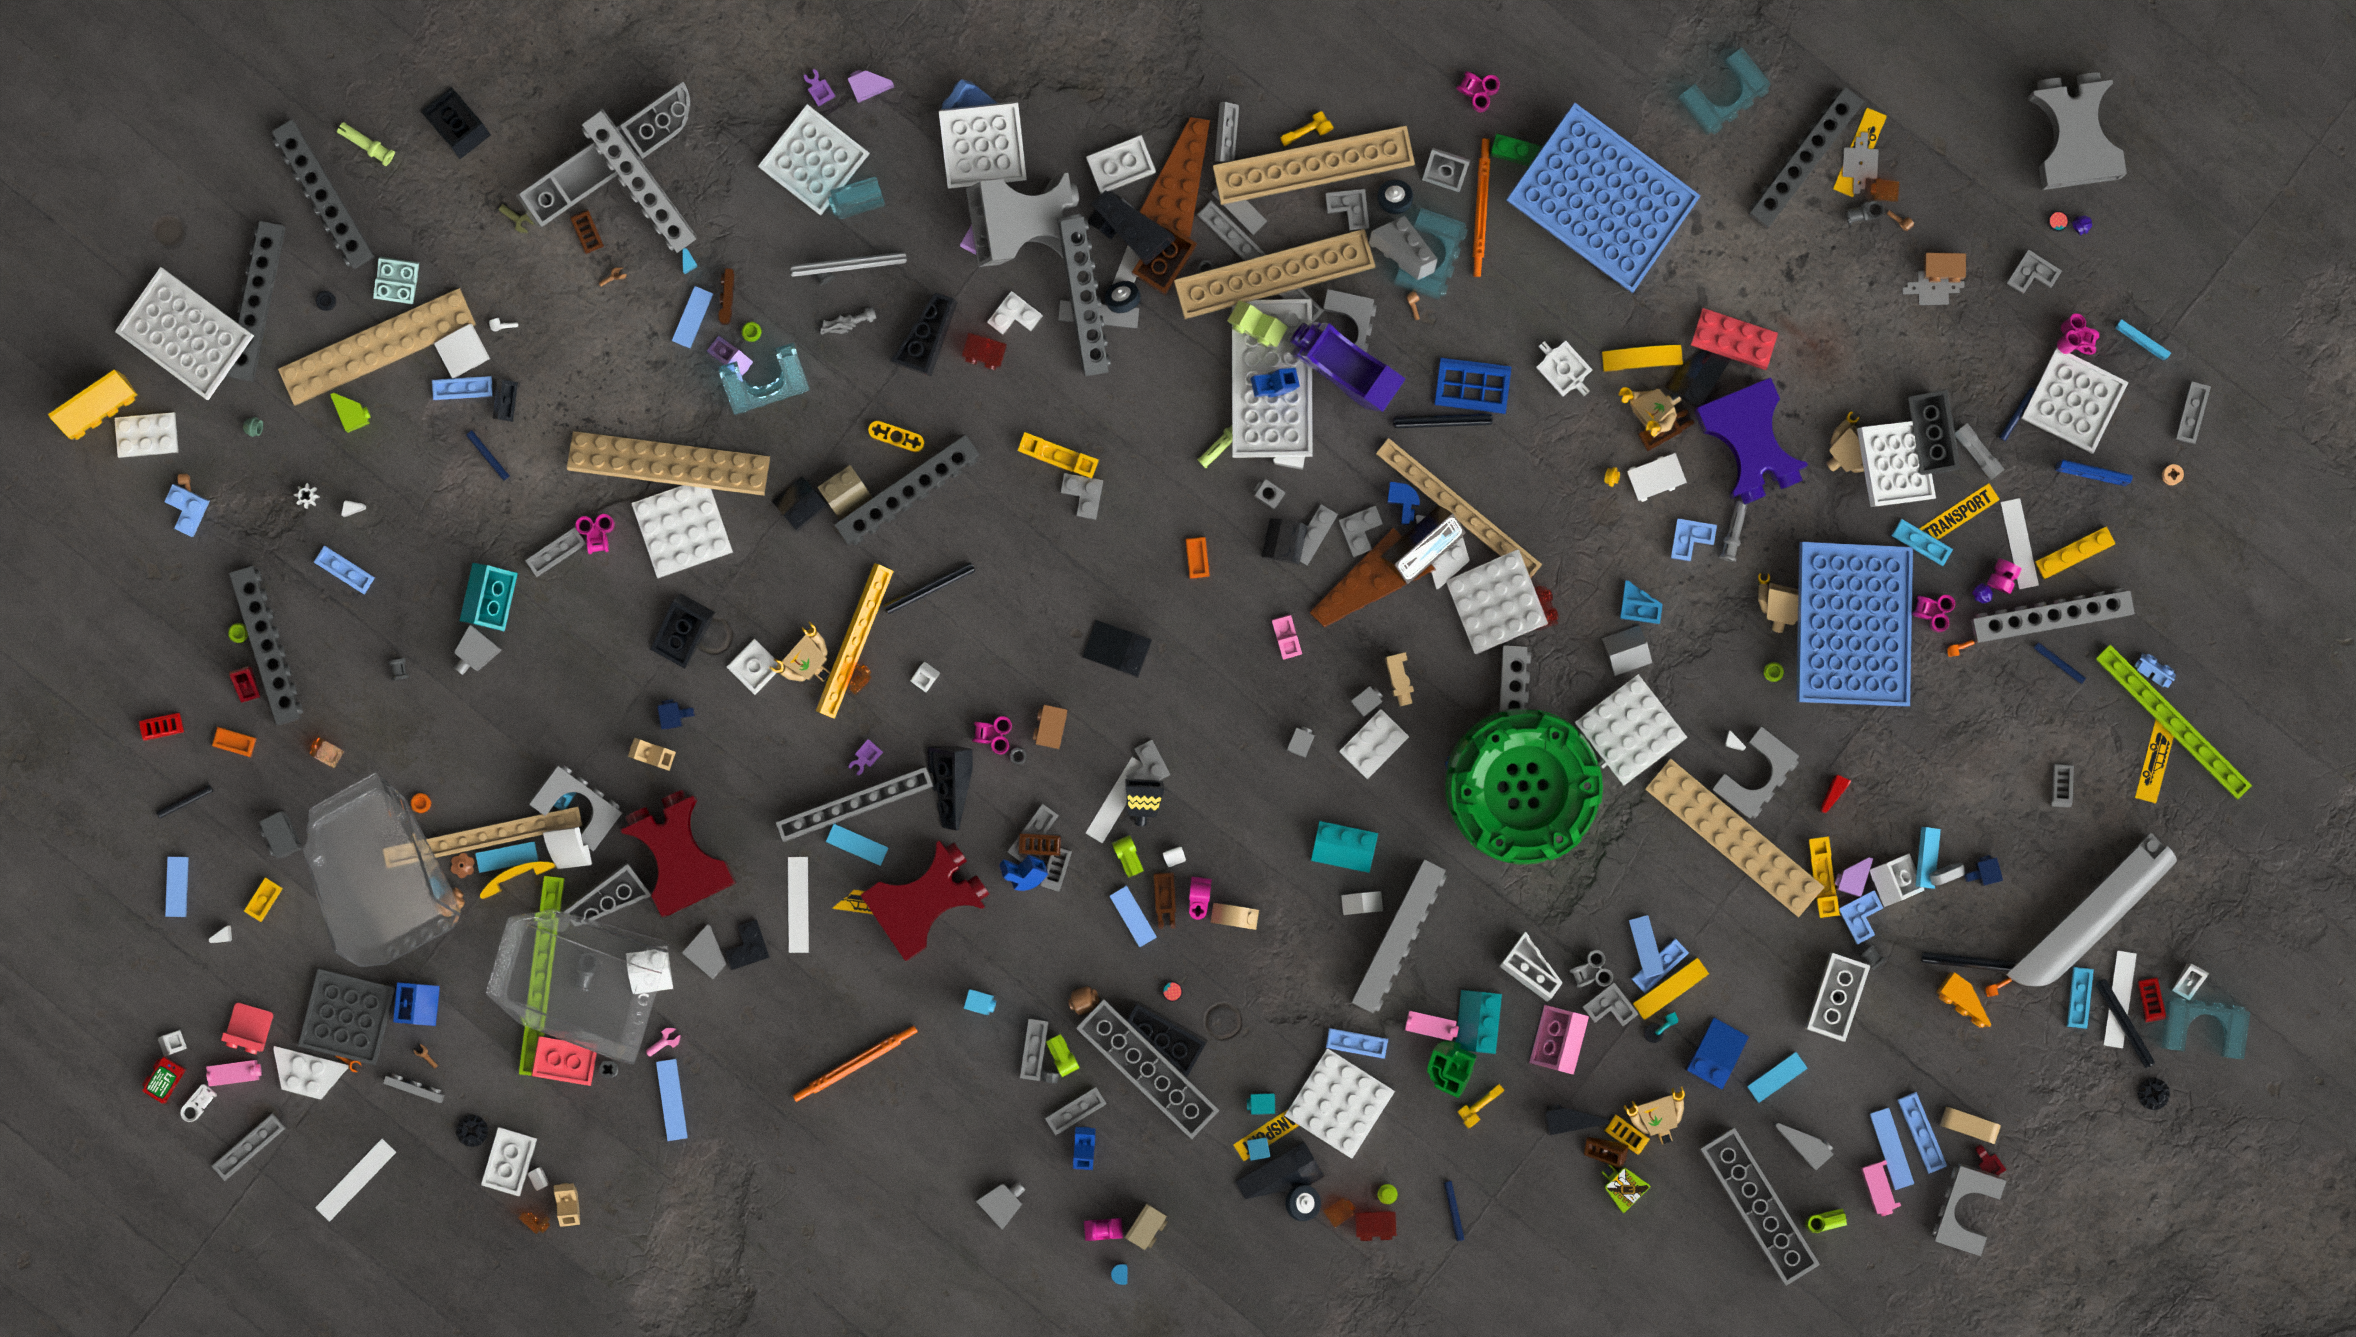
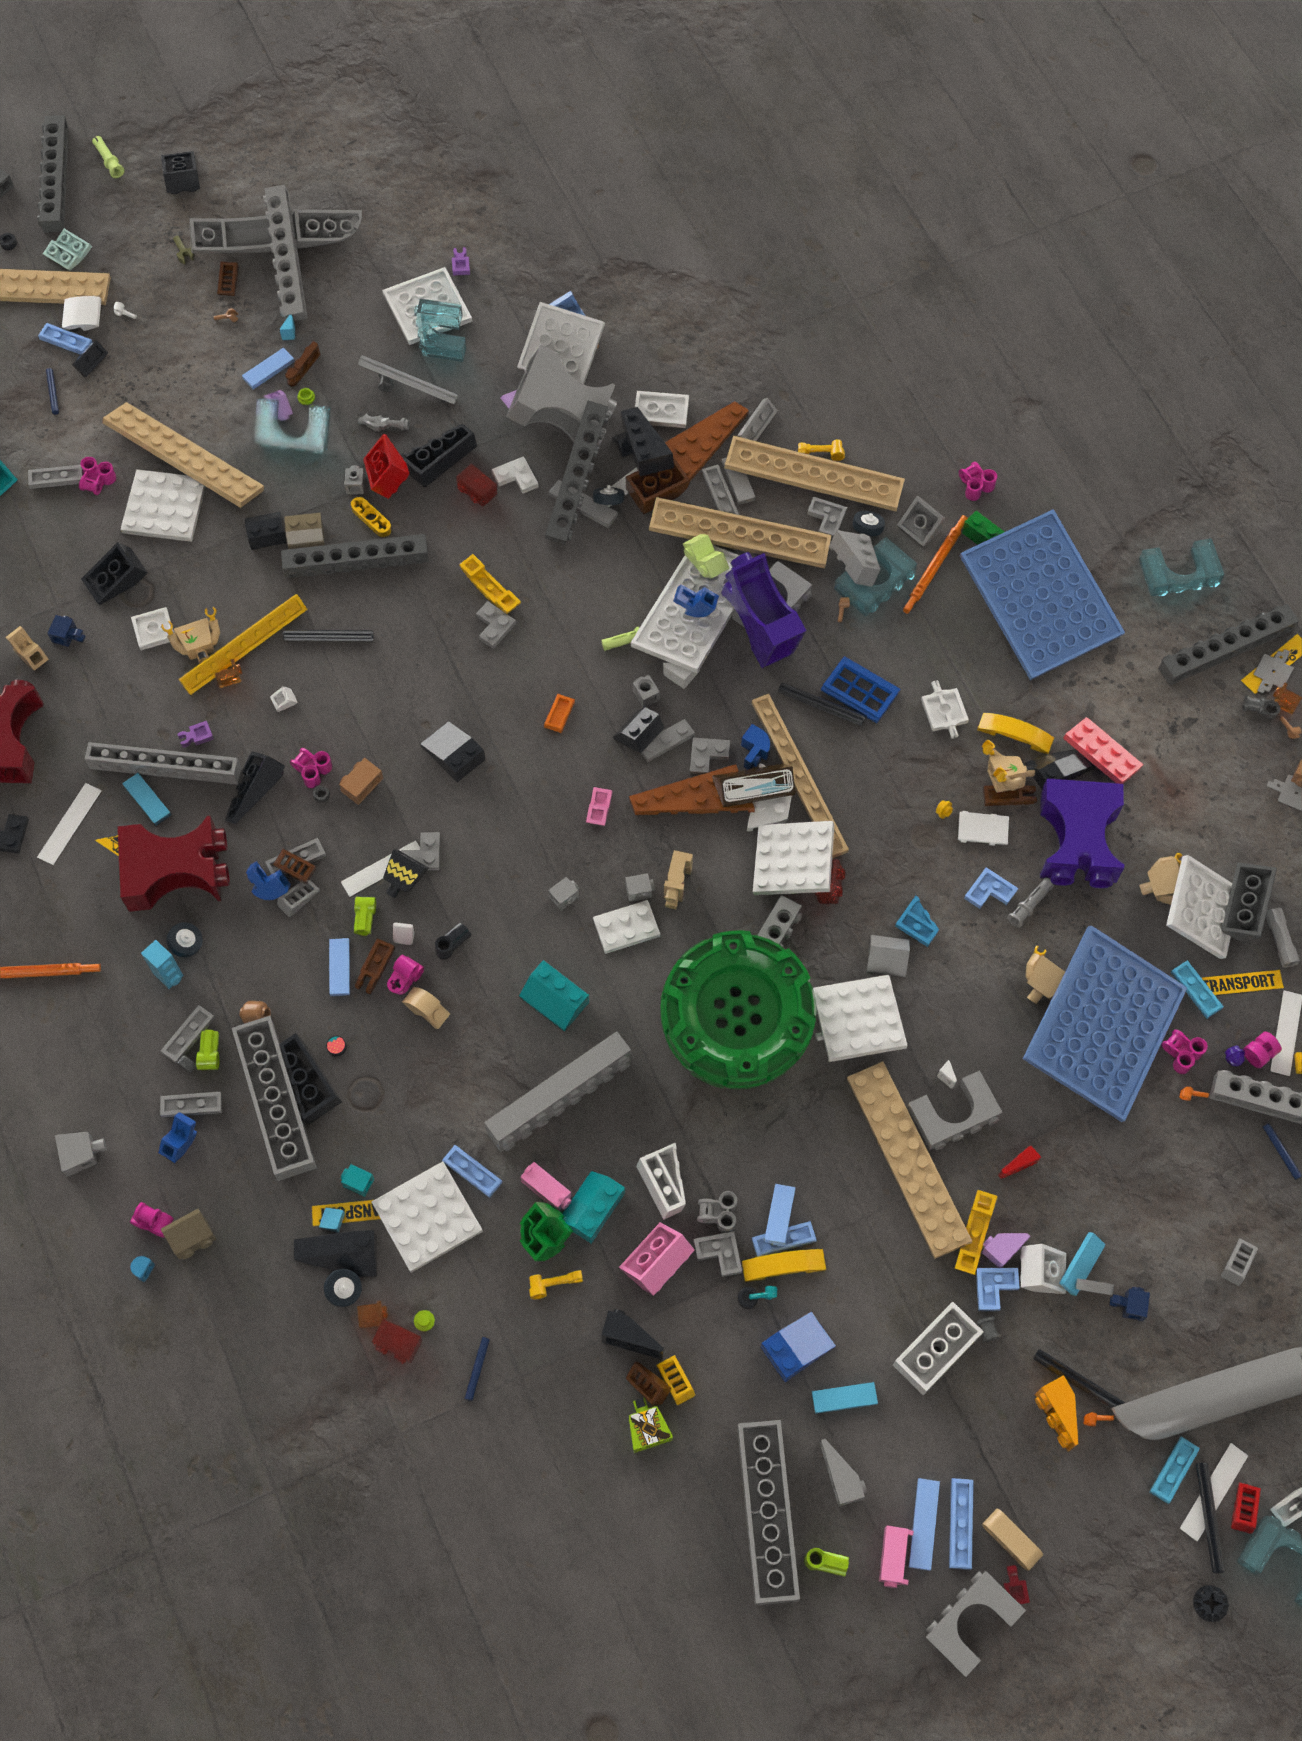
camera: 25 degrees right, 20 degrees down
(860, 411) = (354, 480): none -> light grey brick
(868, 84) = (499, 275): lavender slope -> none
(883, 379) = (385, 467): none -> red slope
(978, 964) = (184, 939): none -> black wheel
(1223, 838) = (453, 940): none -> black piece
(1362, 903) = (544, 1052): white slope -> none
(1658, 1115) = (713, 1374): tan torso -> none
(1773, 672) = (1011, 1033): lime plate -> none

